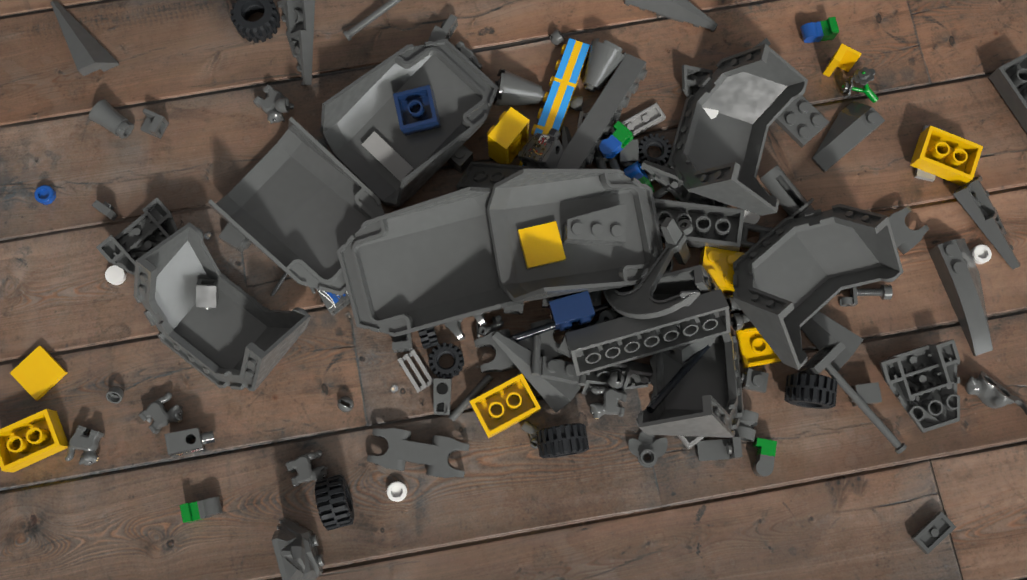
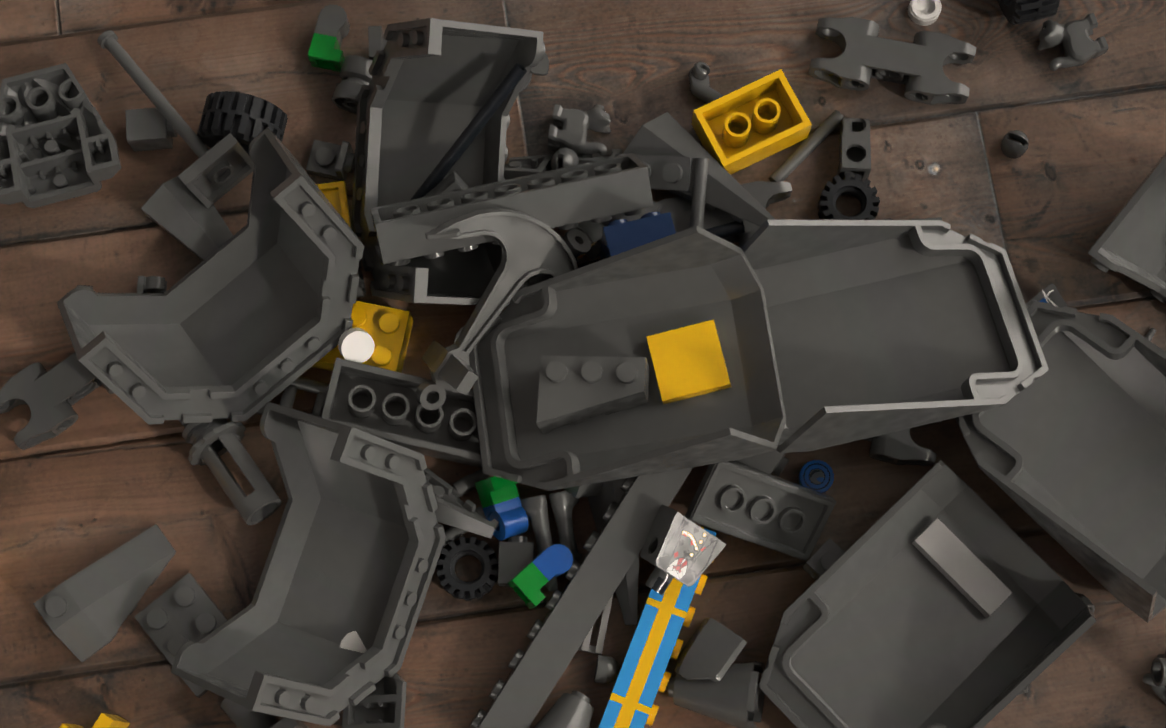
camera: 175 degrees left, 0 degrees up
(407, 357) = (885, 169): light grey tile -> none
(417, 110) = (912, 640): dark blue brick -> none
(508, 136) = (747, 576): yellow brick -> none
(526, 103) = (709, 652): none -> dark grey slope
(562, 440) = (659, 60): black tyre -> none
(644, 120) = (490, 630): light grey tile -> none
(729, 256) = (356, 345): none -> white tile
(863, 77) = (60, 688): dark grey plant -> none

